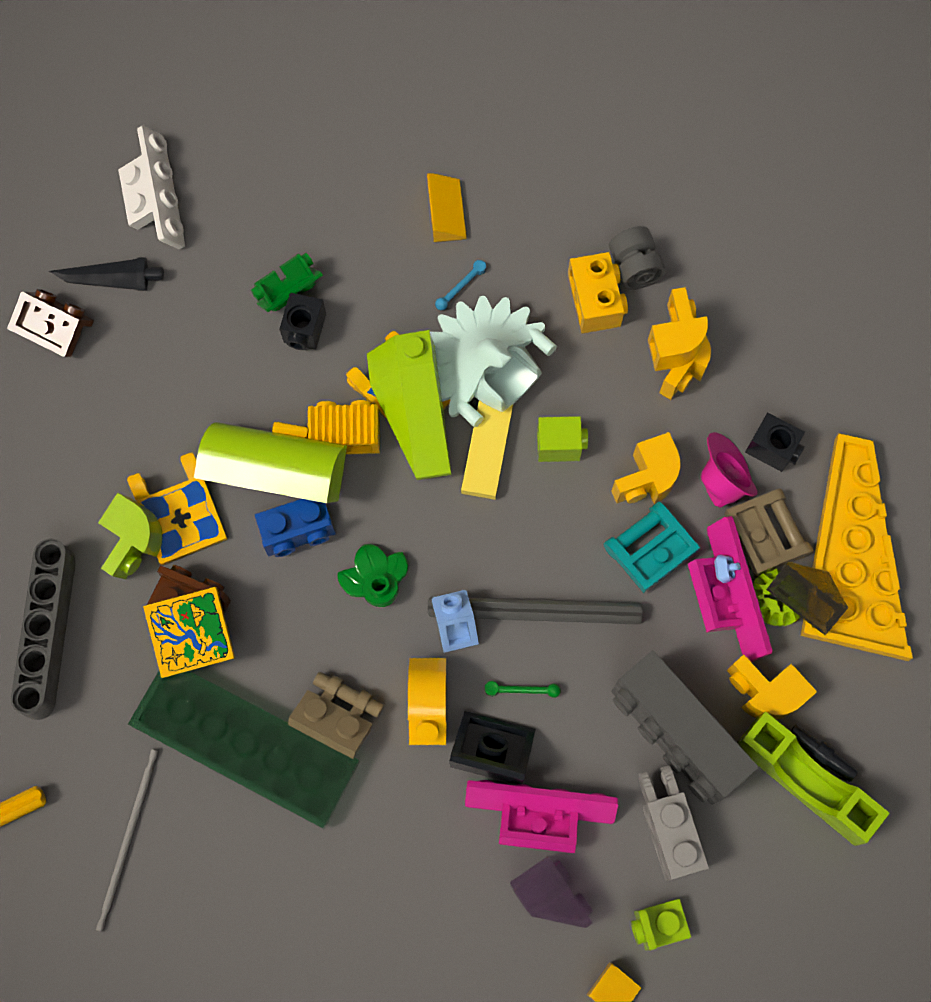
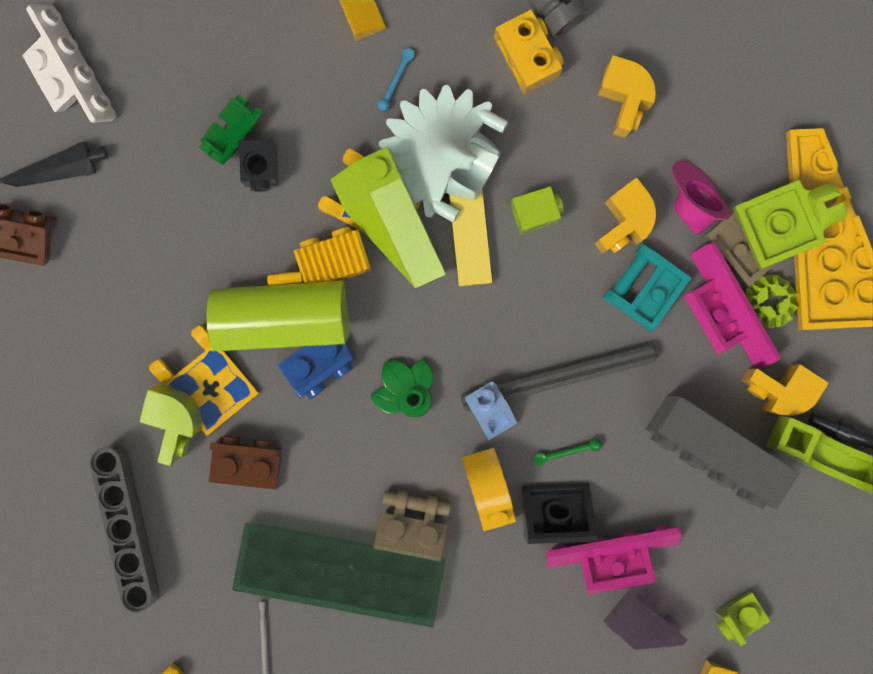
camera: 25 degrees left, 15 degrees up
(189, 632) = (258, 496): tile -> none
(672, 828) = (732, 538): light grey hinge -> none
(681, 339) = (626, 84): yellow brick -> none
(725, 568) = (720, 292): light blue rock -> none
(775, 428) = (721, 161): black brick -> none
(810, 595) = (802, 295): clear smoke slope -> none
(813, 515) = (788, 221): none -> lime plate

